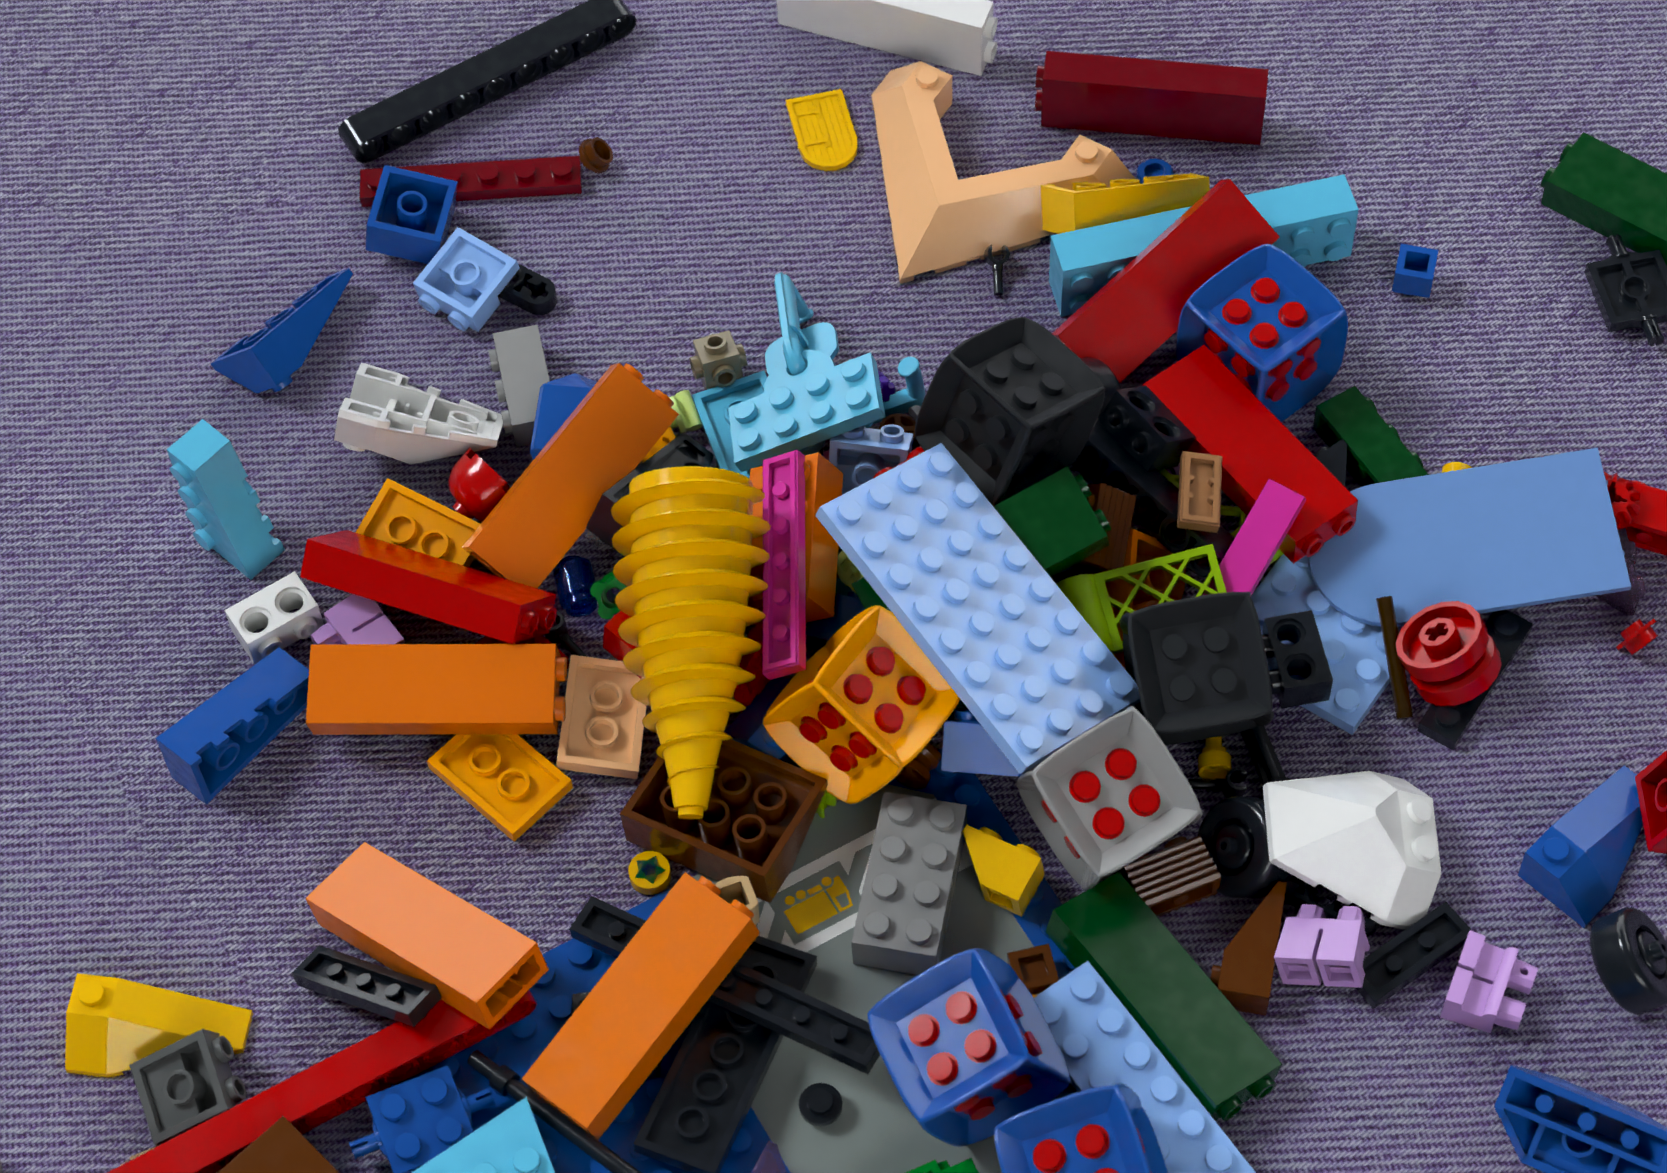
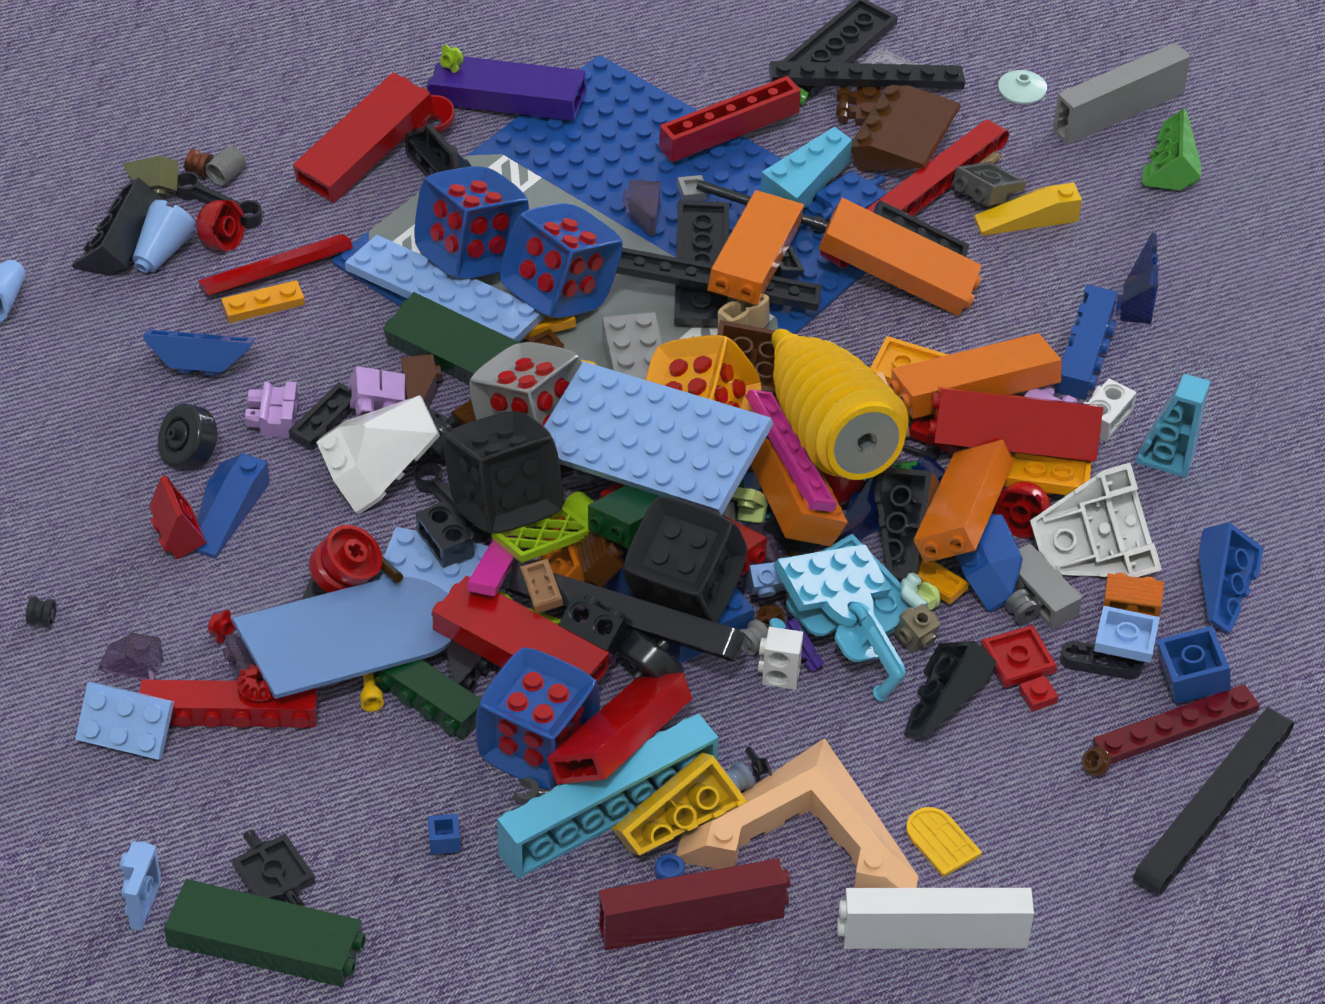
camera: 155 degrees right, 10 degrees down
(94, 802) = (1141, 286): none -> clear blue wedge
(420, 339) = (1134, 593): none -> orange brick
(565, 359) = (1023, 607): none -> flat silver wheel
(608, 308) = (1019, 656): none -> red plate
(610, 262) = (1038, 693): none -> red plate
(704, 407) = (909, 590): none -> light aqua arm
(723, 287) = (952, 678): none -> black wedge
(912, 339) = (781, 657): none -> white brick
(1033, 244) = (741, 776): none -> sand blue wheel

